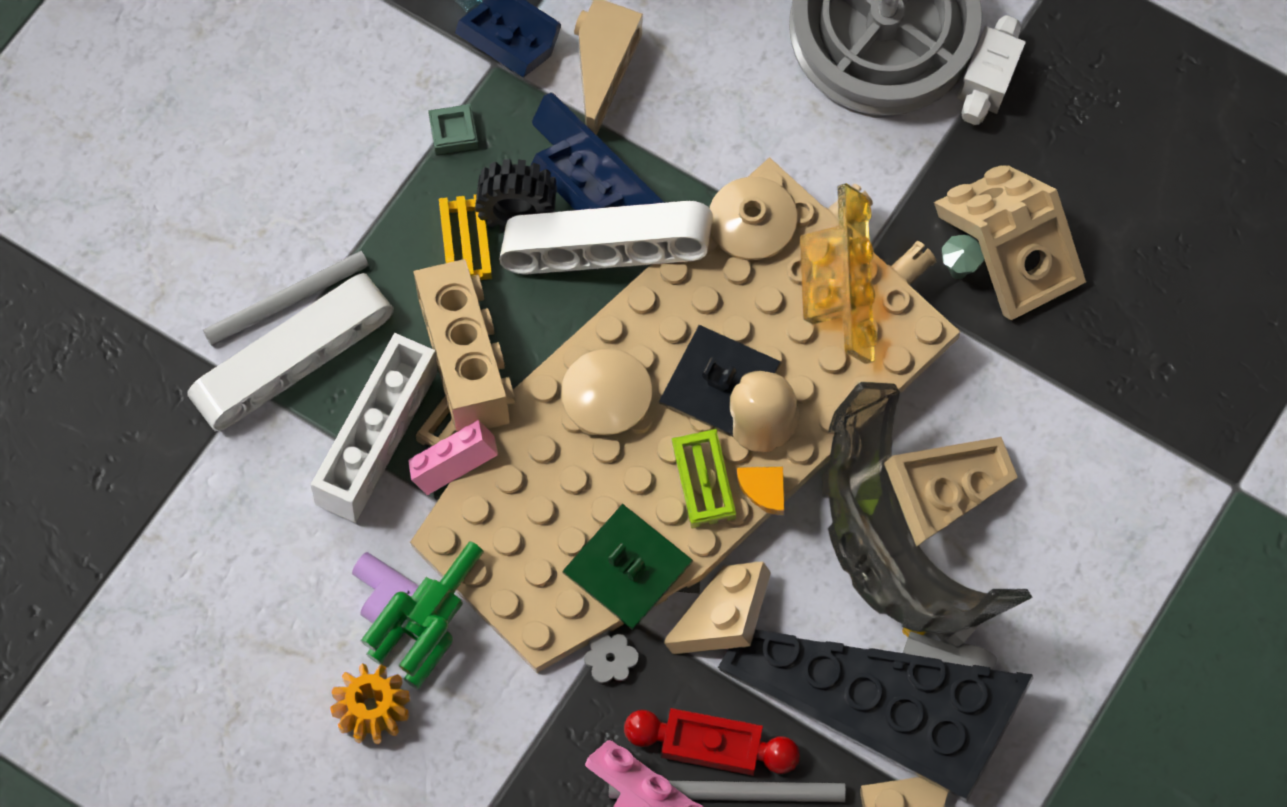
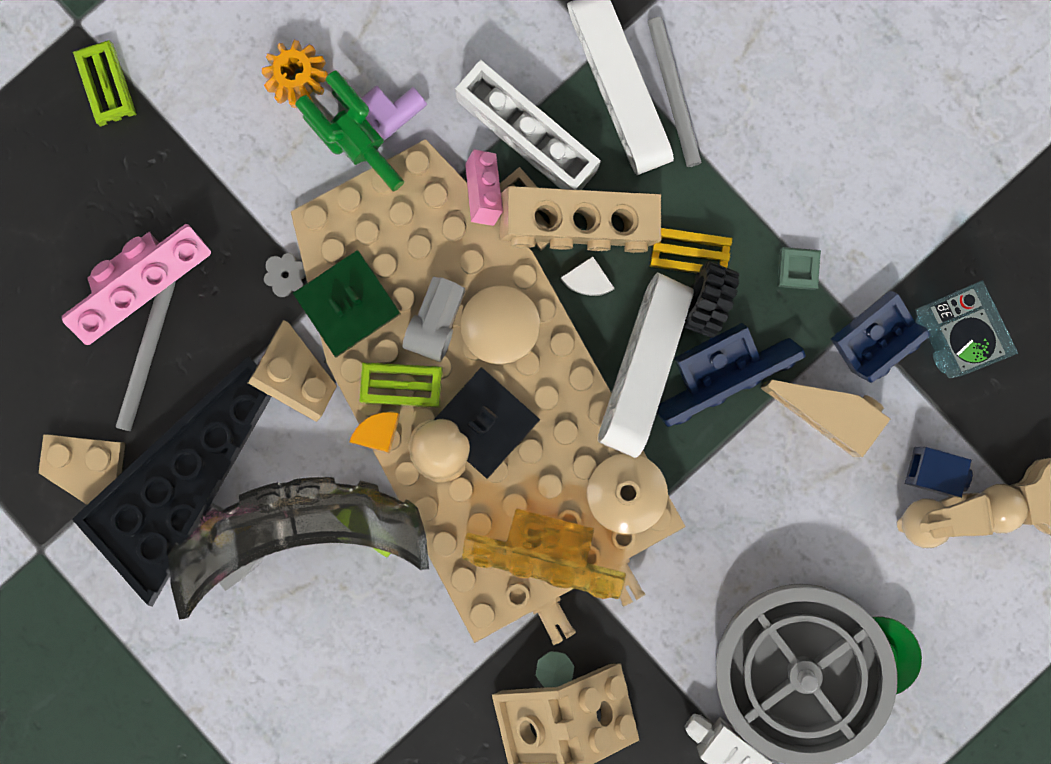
camera: 105 degrees right, 20 degrees up
(524, 334) = (588, 279): none -> white tile
(633, 458) = (431, 330): none -> light grey piece
(712, 741) = (189, 335): red plate -> none
(947, 482) = (347, 588): tan wing -> none

